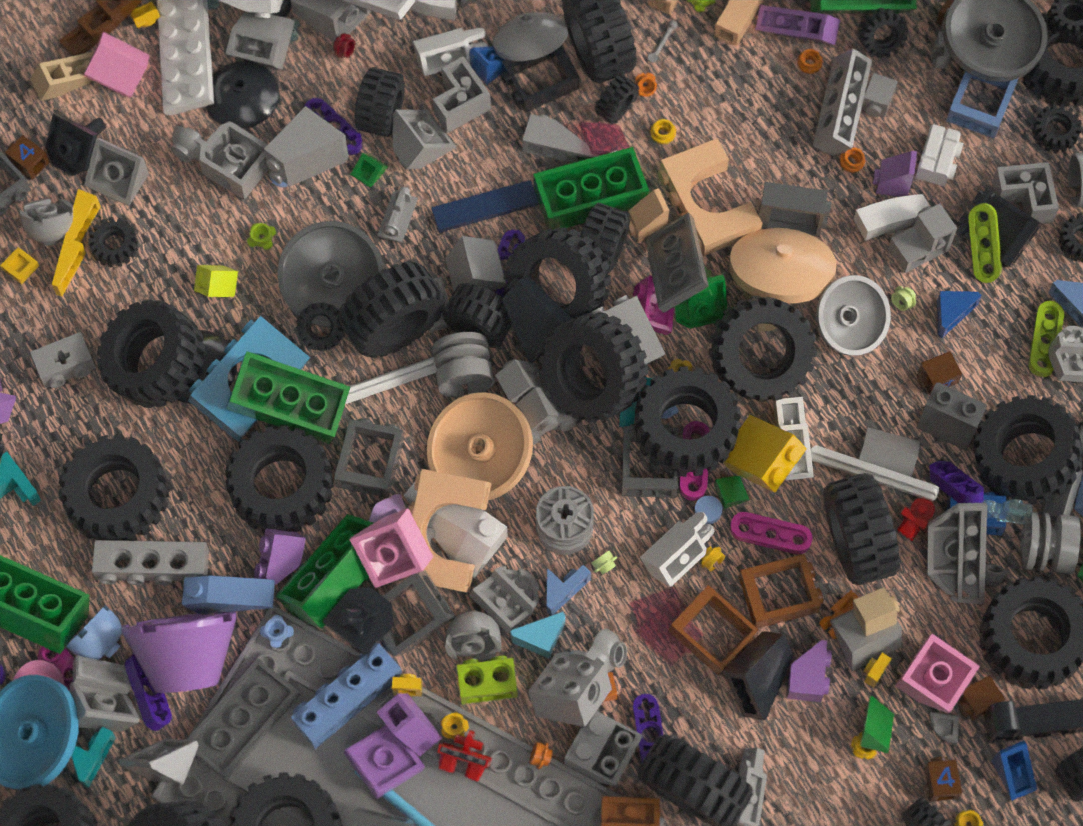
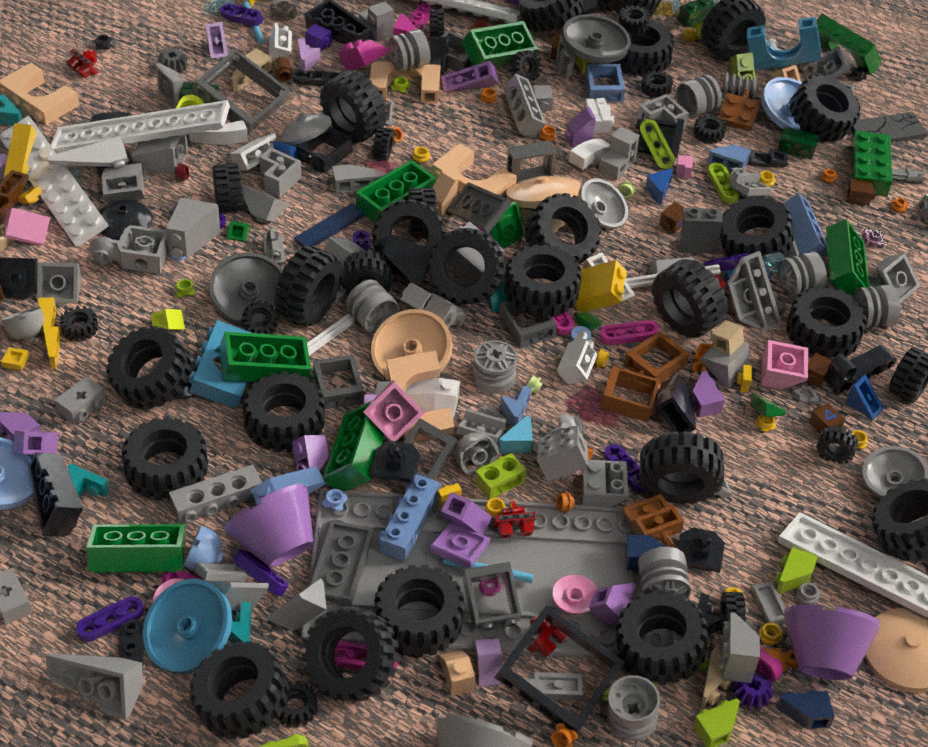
camera: 30 degrees left, 20 degrees down
(1008, 290) = (684, 166): none -> bright pink piece

